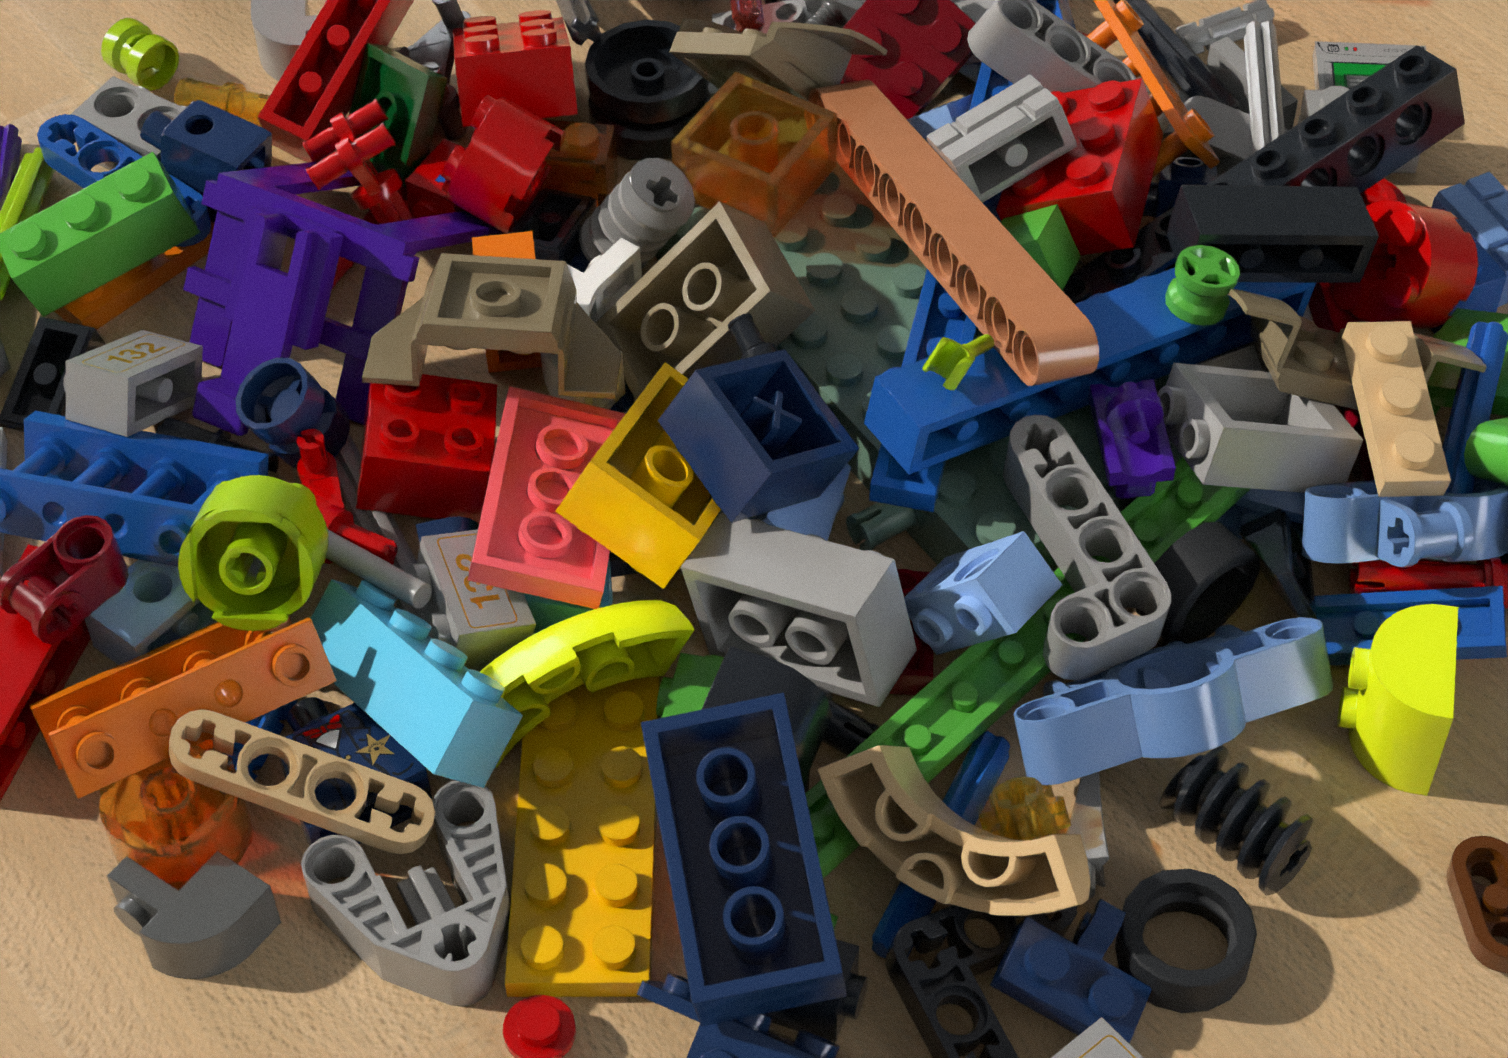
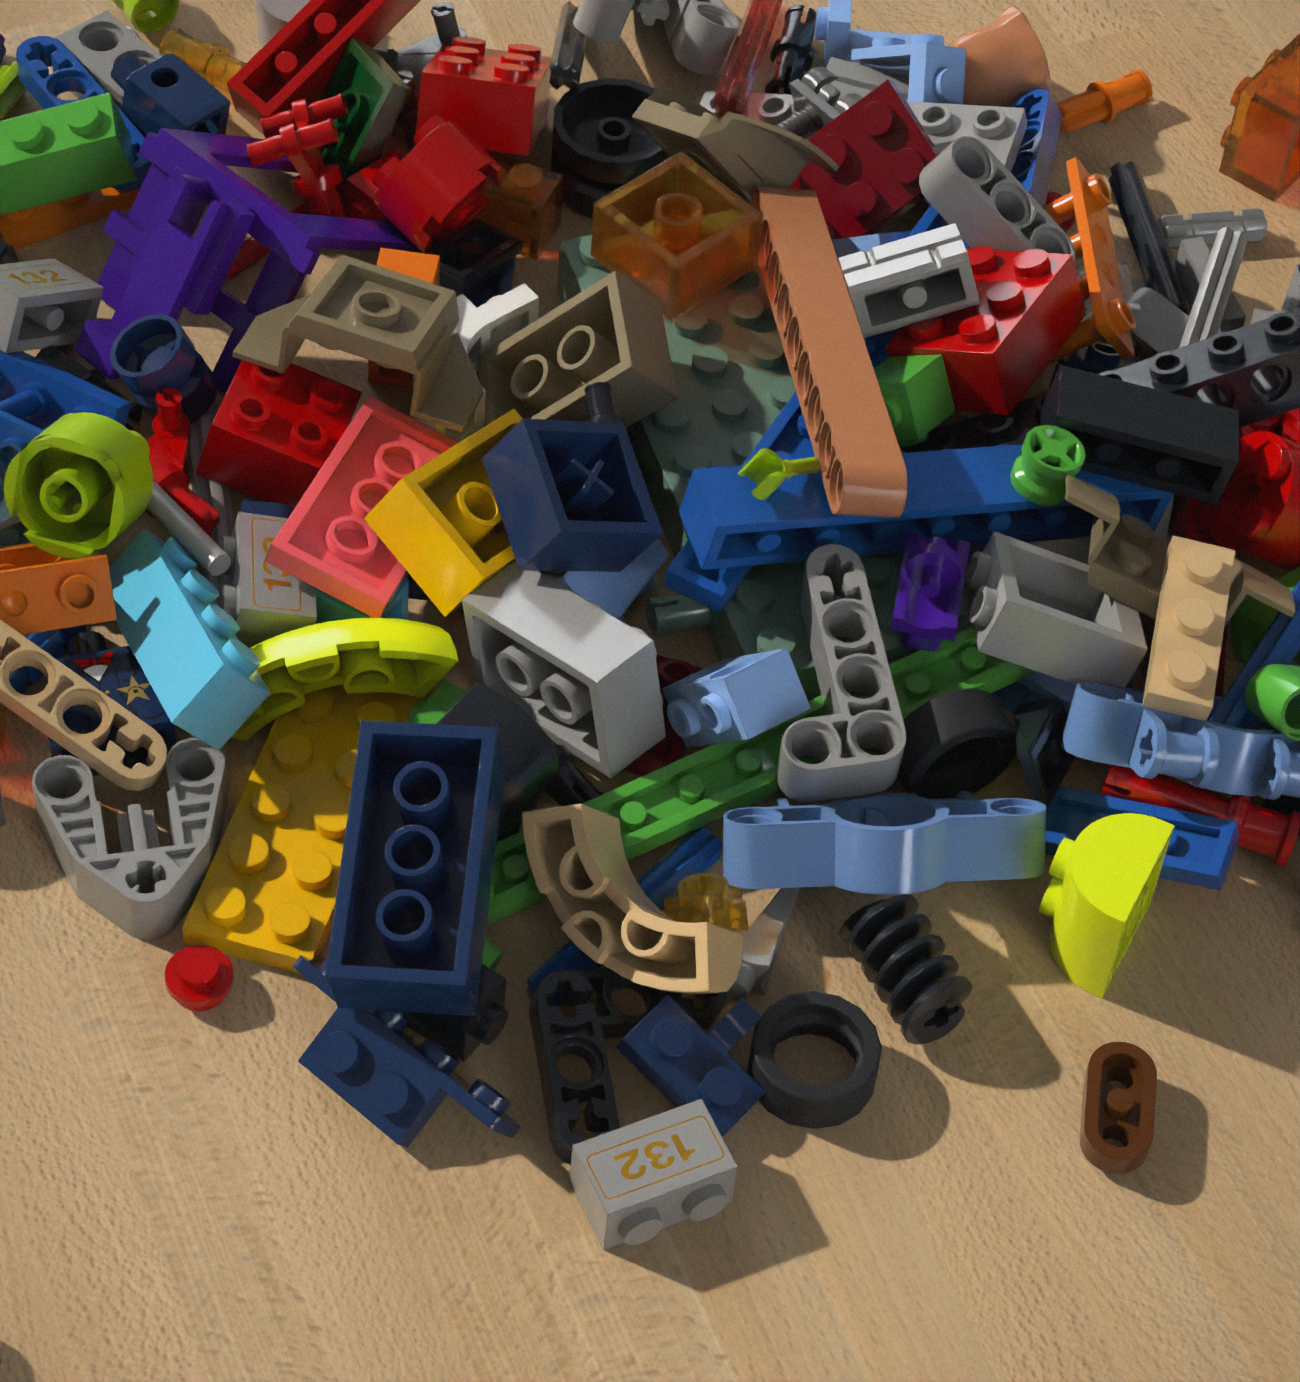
camera: 10 degrees right, 0 degrees up
(641, 209) = (553, 261): light grey piece -> none

